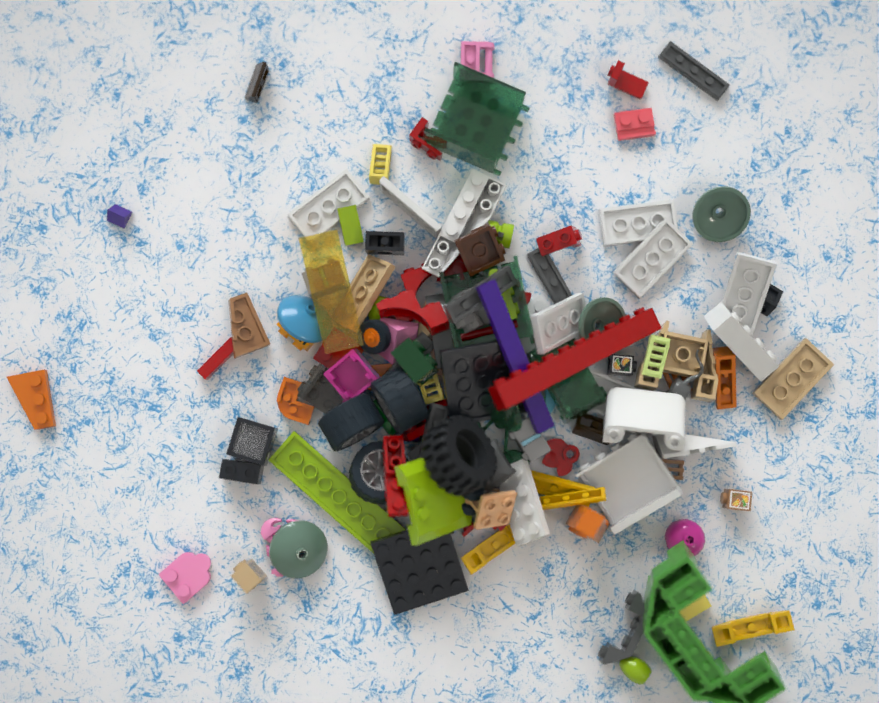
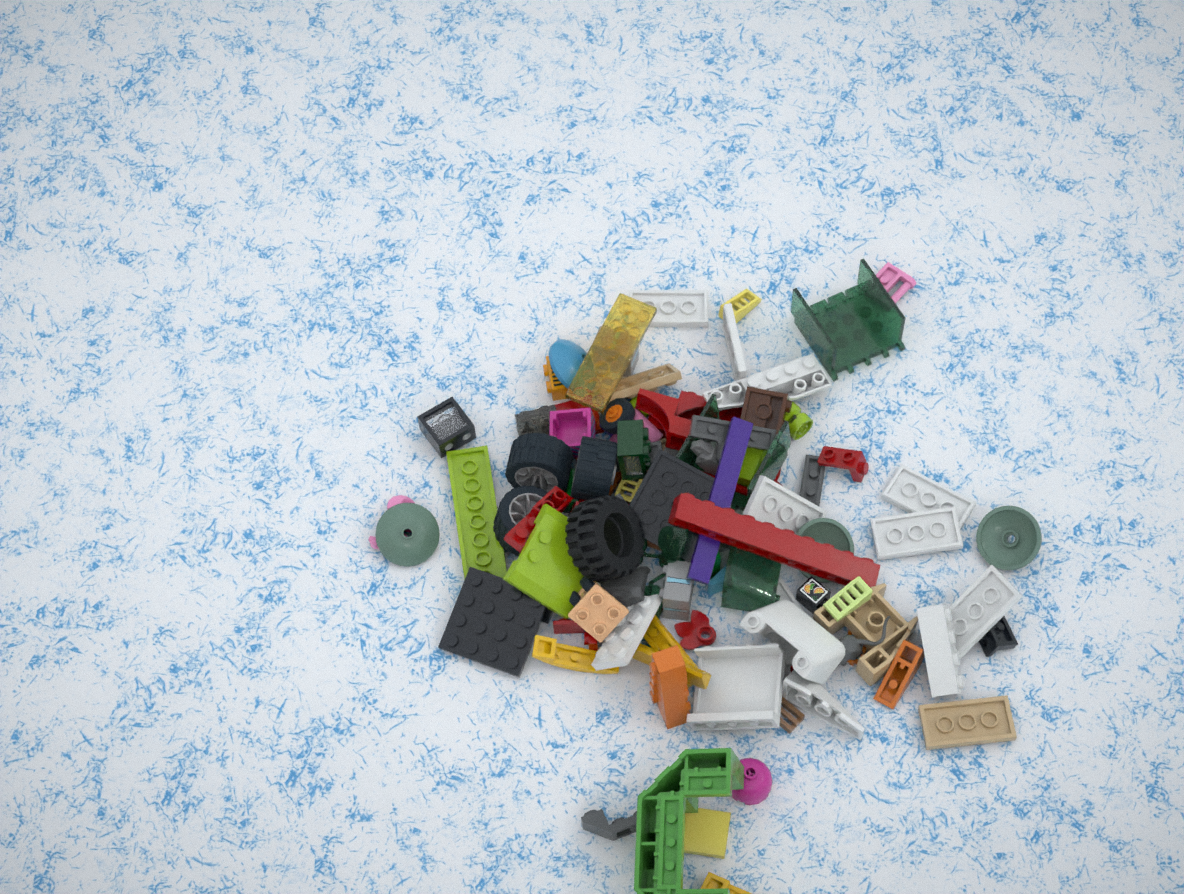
camera: 45 degrees right, 25 degrees down
(35, 397) = (310, 282): orange wing -> none
(118, 215) = (494, 203): dark purple slope -> none
(187, 575) = (301, 492): bright pink plate -> none
(216, 360) = (477, 353): red piece -> none
(241, 471) = (417, 444): black brick -> none
(246, 327) = (519, 346): medium nougat wing -> none
(248, 575) = (349, 521): tan brick -> none
(257, 82) = (692, 185): slope -> none
(289, 405) = (502, 426): orange plate -> none
(350, 225) = (673, 331): lime tile -> none
(384, 243) = (690, 360): black brick -> none
(417, 142) = (785, 310): red bracket -> none
(590, 428) = (739, 634): dark brown slope -> none
(626, 82) = (1008, 383): red bracket -> none
(634, 124) = (990, 423): coral plate -> none
(635, 669) = (607, 853): lime animal -> none
(693, 71) = (1081, 418): dark grey tile -> none
(736, 499) = (825, 782): medium nougat brick -> none

